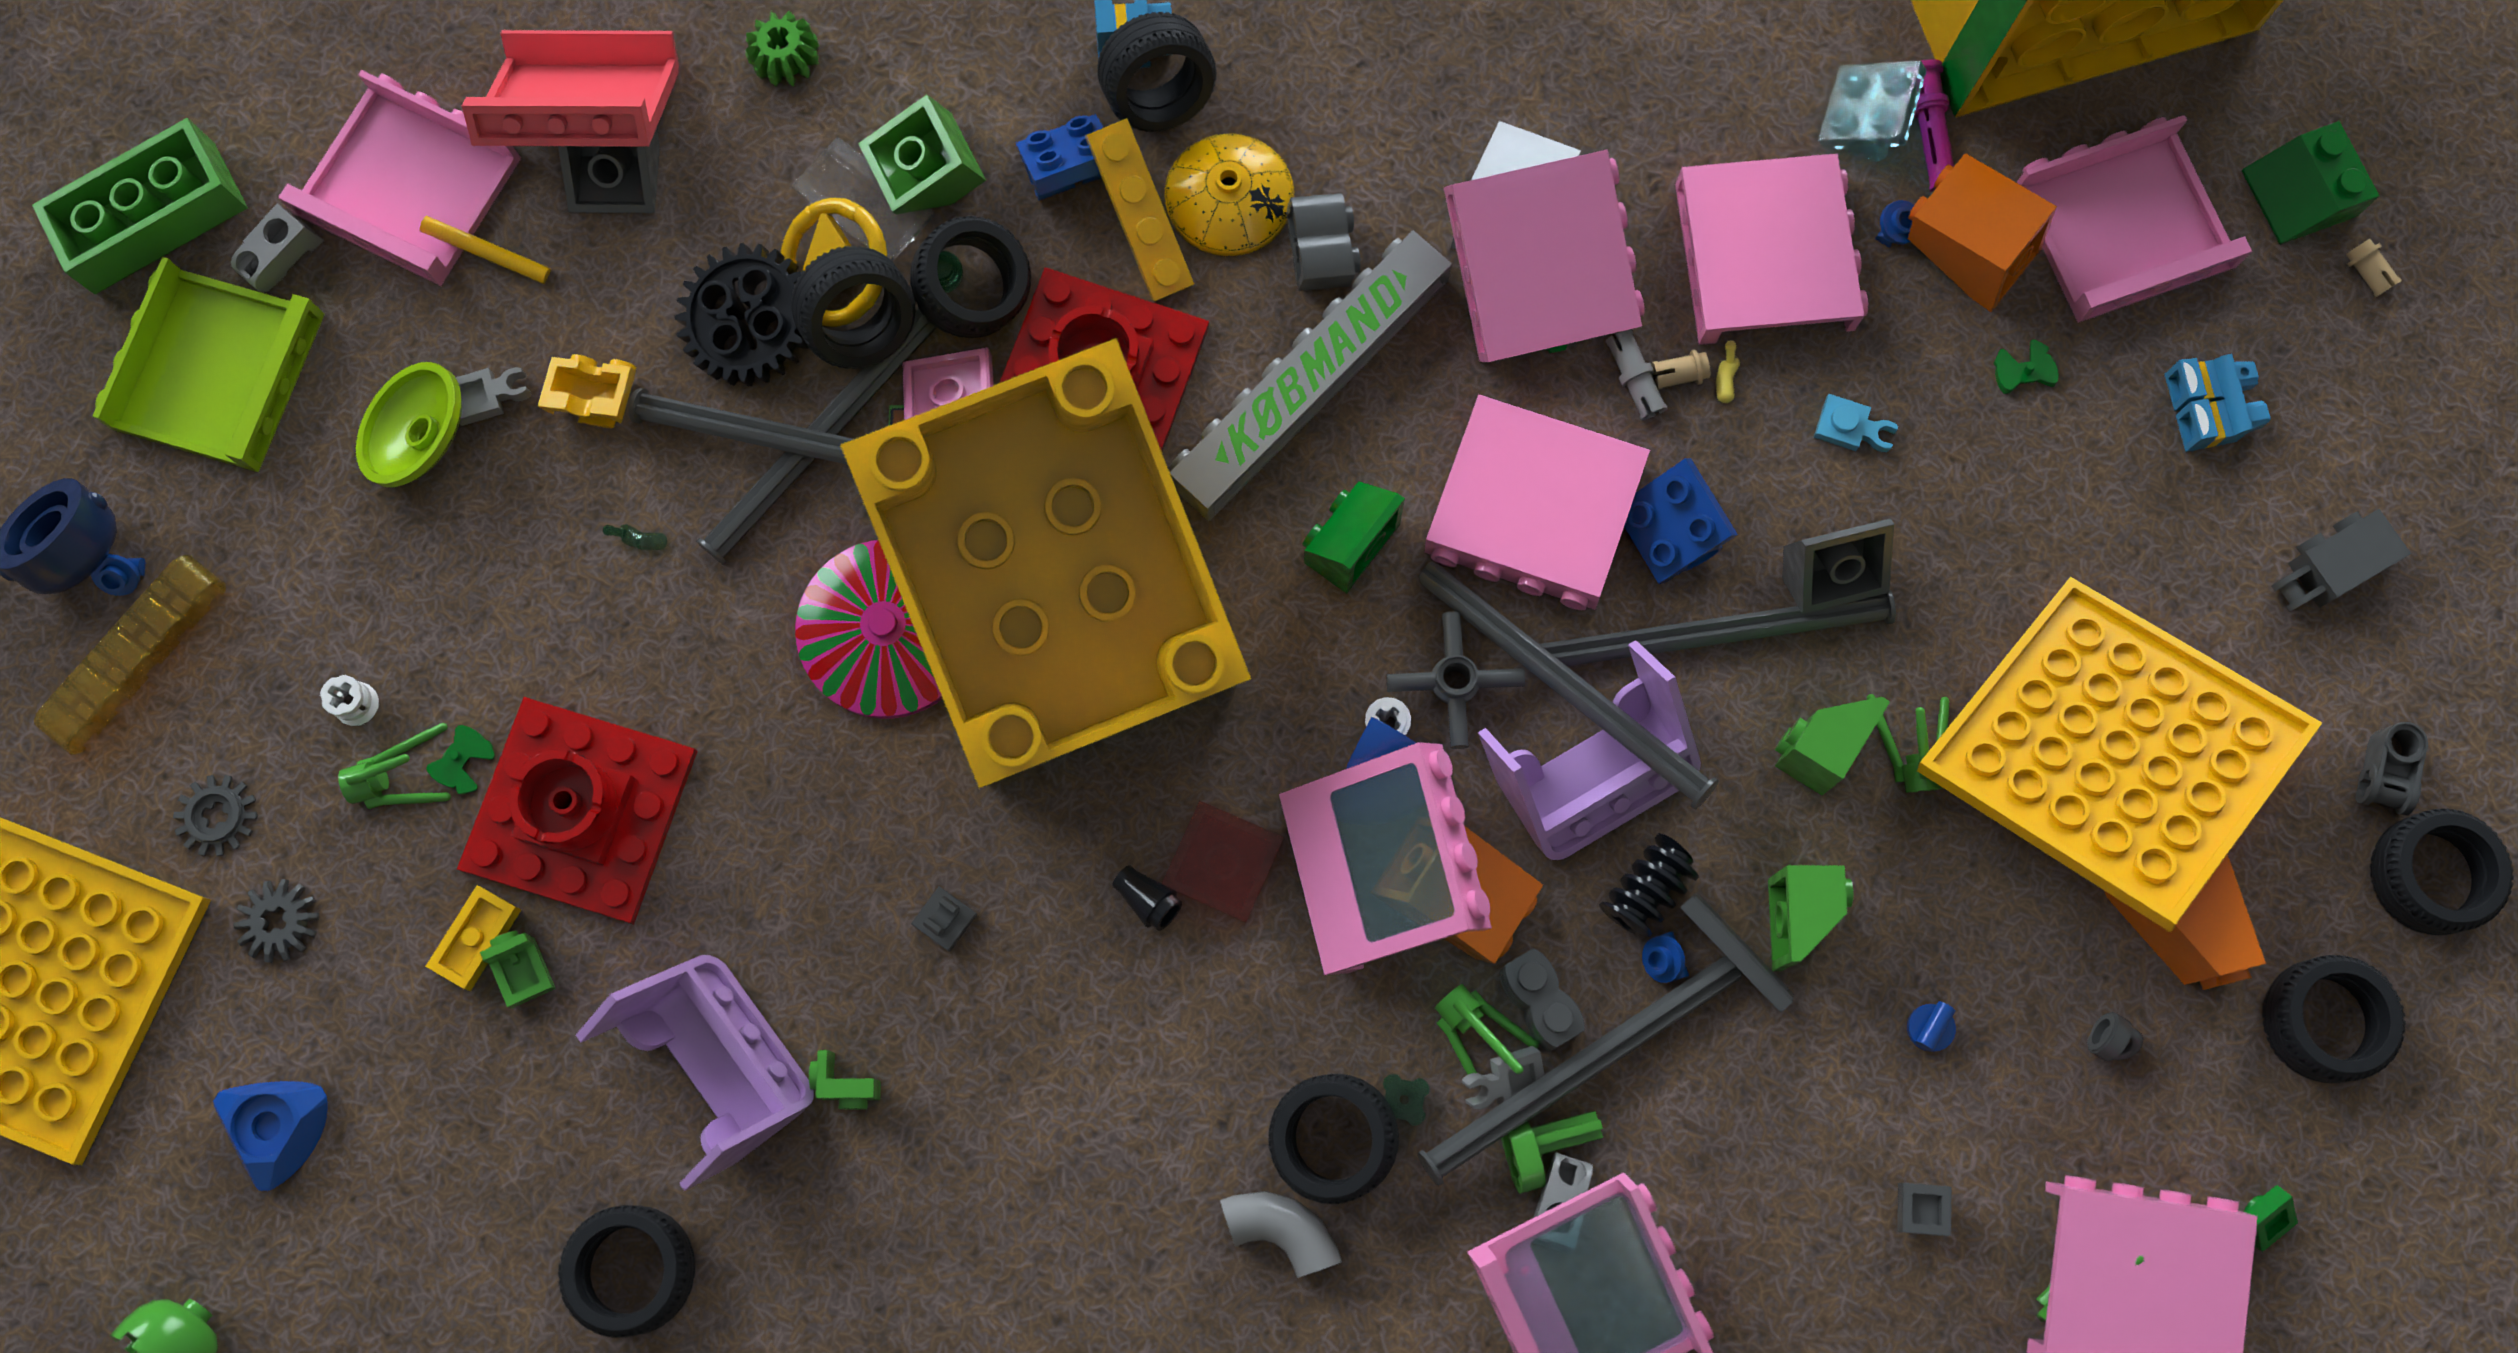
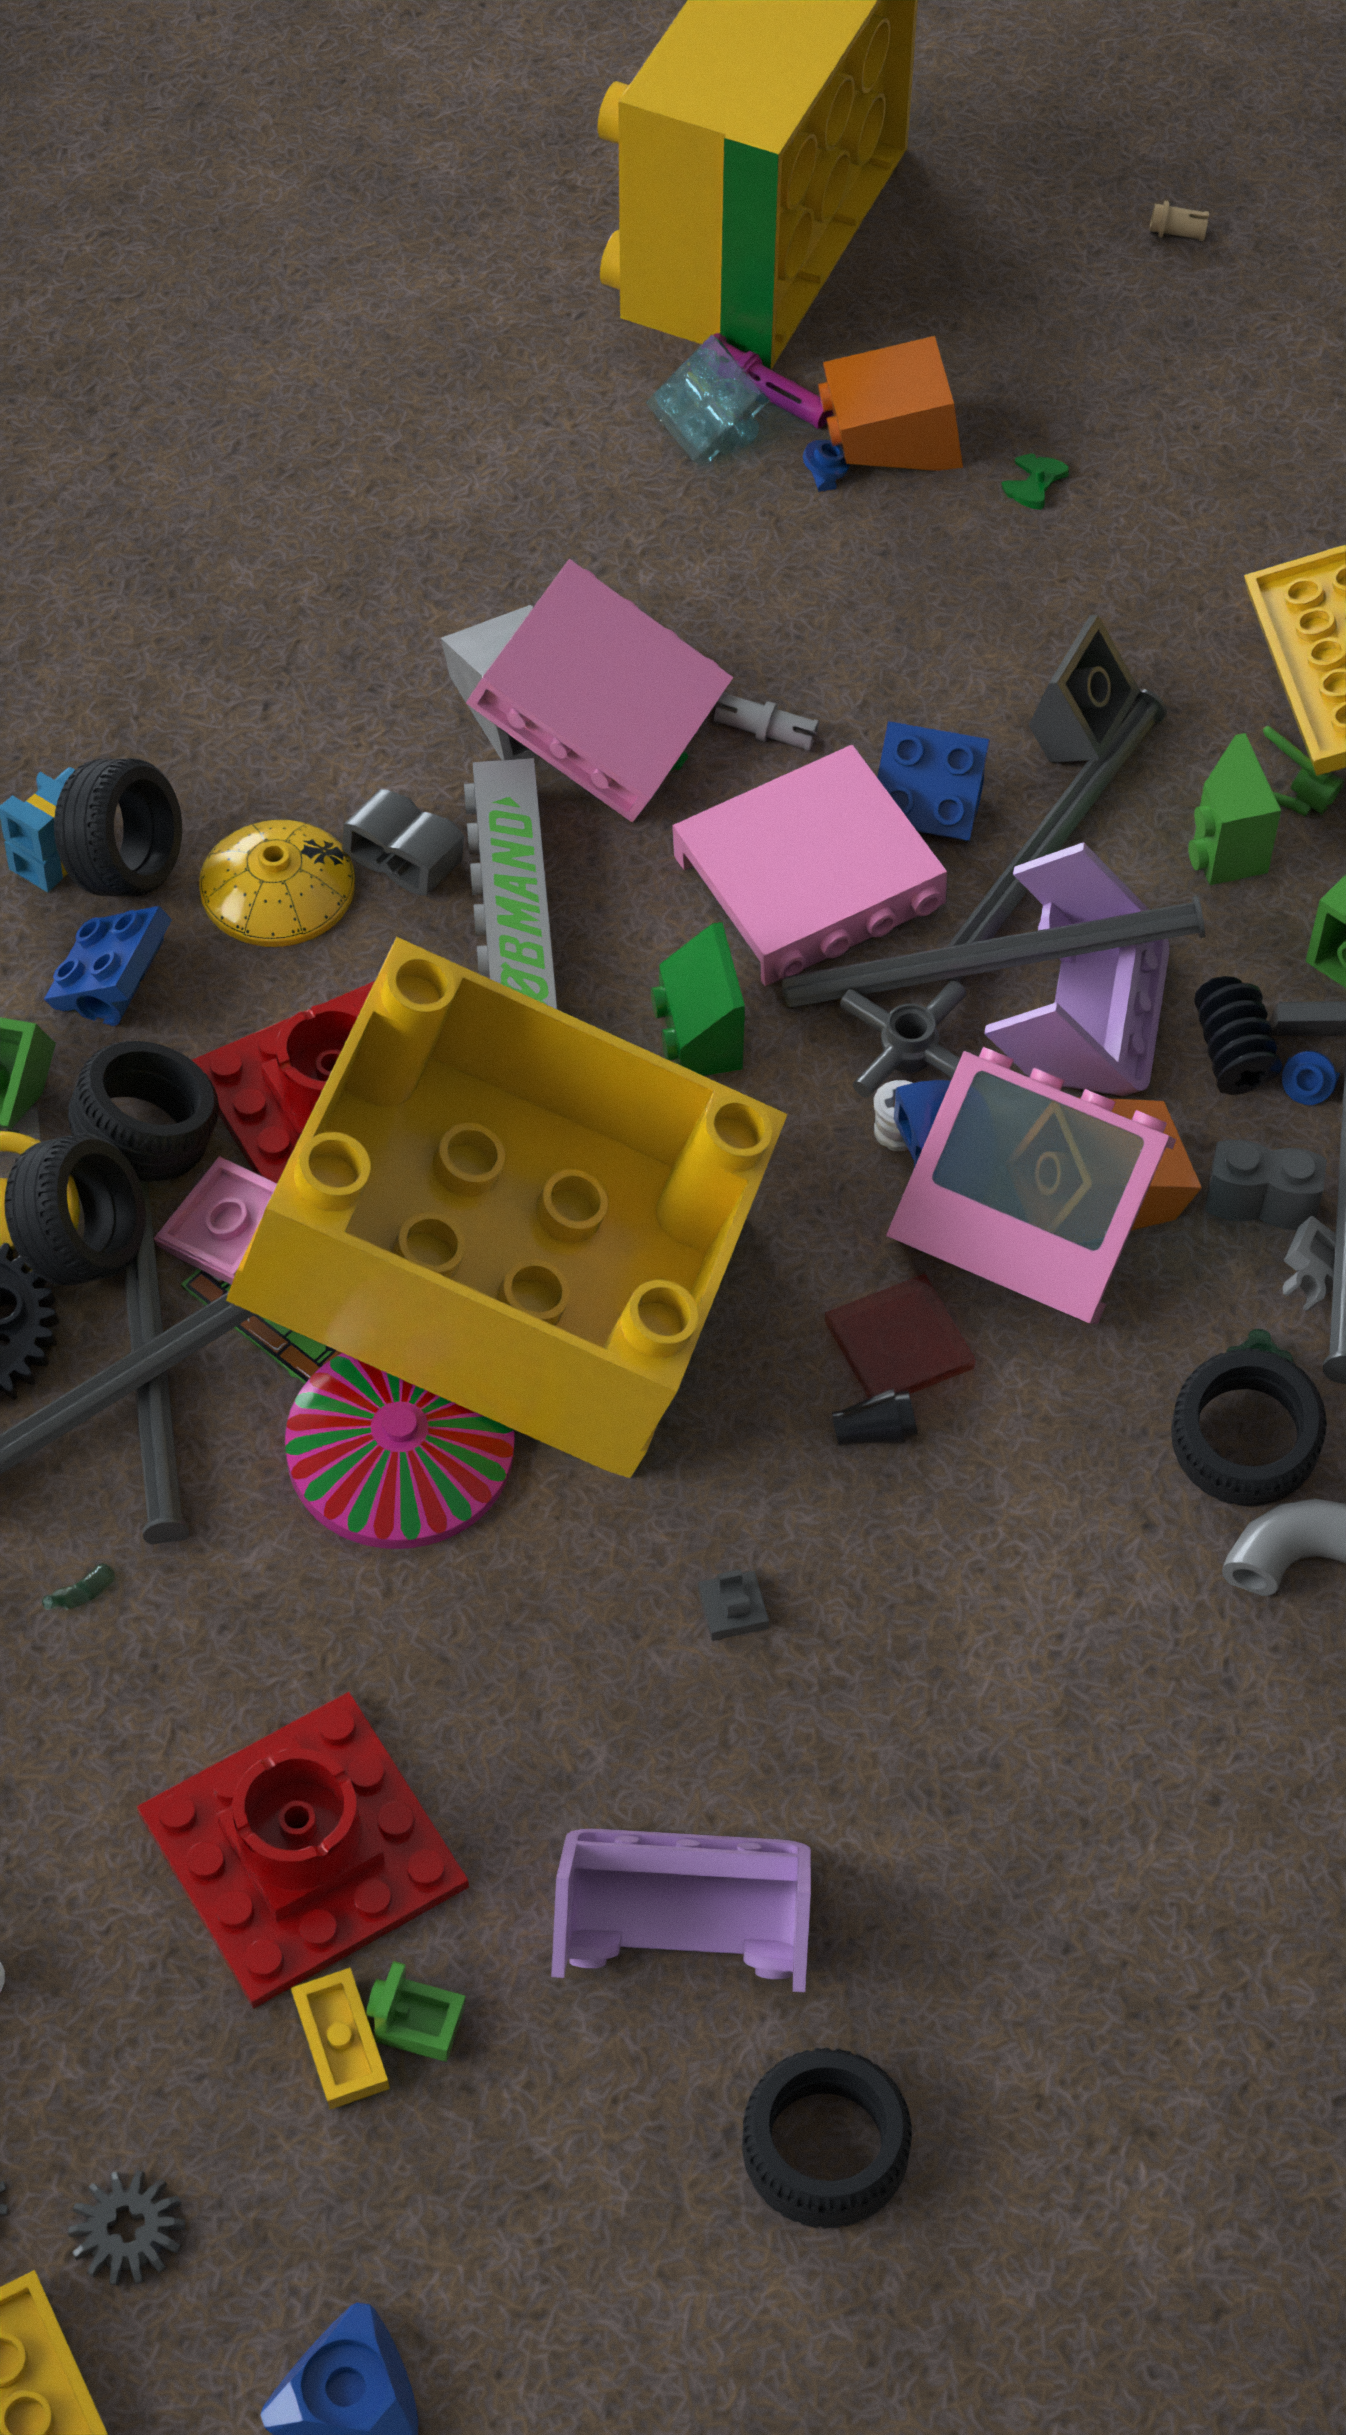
camera: 50 degrees left, 20 degrees down
(370, 778) = (69, 2014): bright green plant -> none
(450, 769) = (136, 1937): green piece -> none
(851, 1093) = (829, 1803): bright green bracket -> none
(1139, 209) = (227, 938): yellow plate -> none
(1463, 1011) = (1220, 1252): bright green plant -> none
(1683, 370) = (802, 680): tan pin -> none
(1726, 373) = (829, 668): light yellow piece -> none
(1769, 245) = (750, 553): bright pink panel -> none
(1847, 424) = (964, 622): medium azure plate -> none
(2129, 220) = (991, 323): bright pink panel -> none
(2214, 401) = (1188, 386): dark azure hips -> none
(2311, 183) = (1071, 203): green slope -> none

